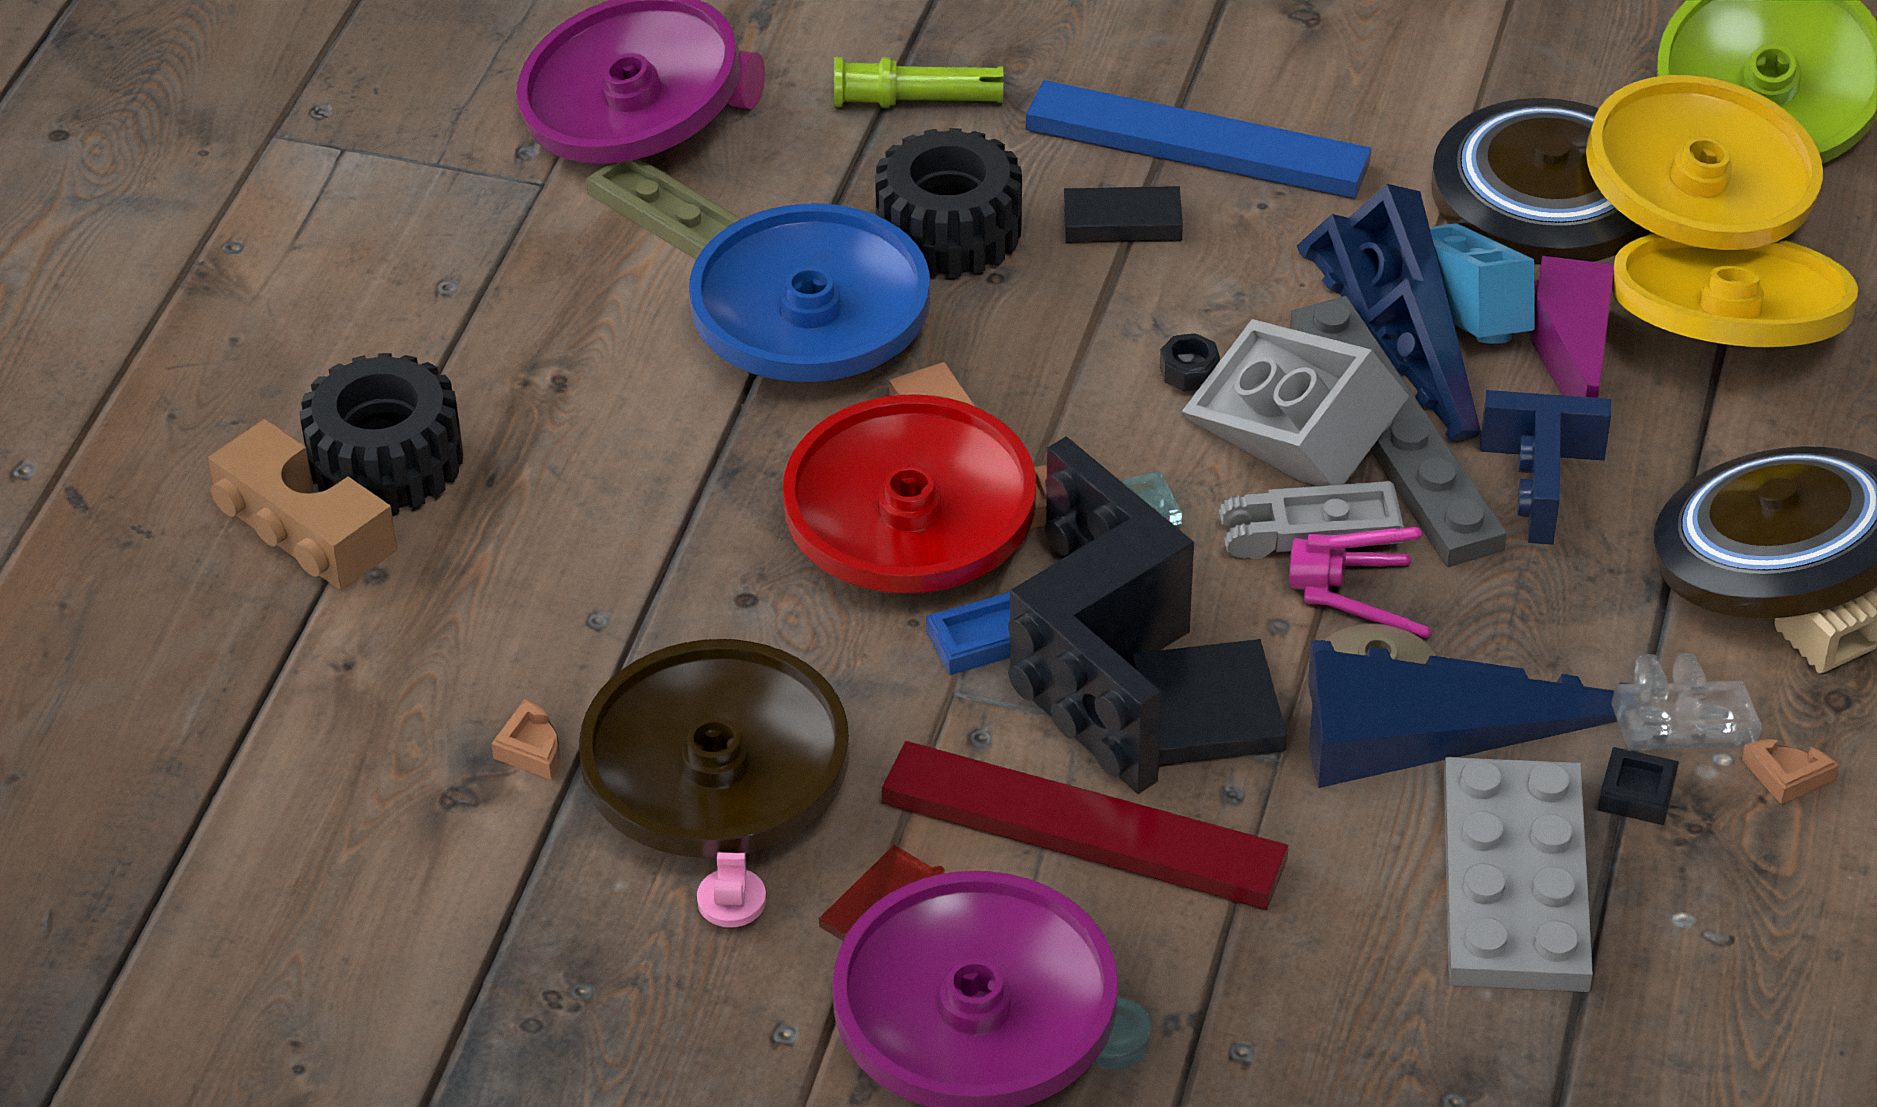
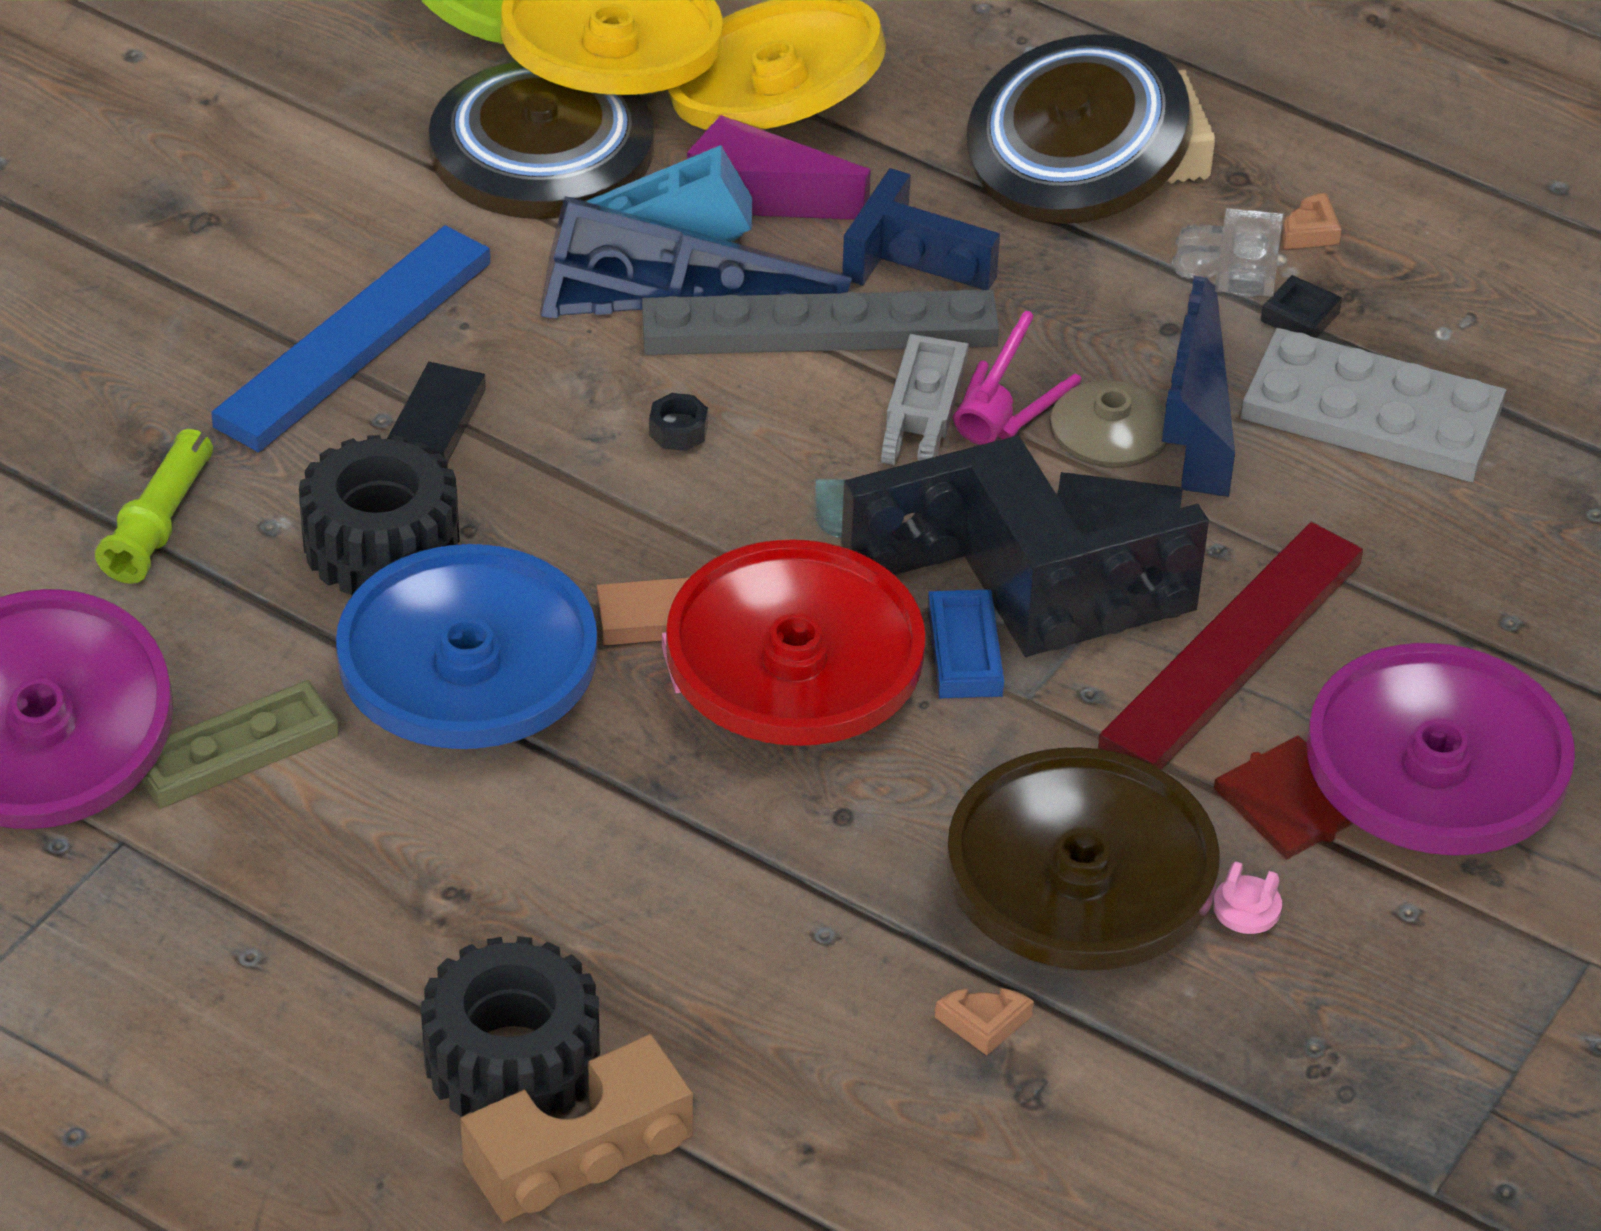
camera: 75 degrees left, 0 degrees up
(1298, 402) = (786, 359): light grey slope -> none

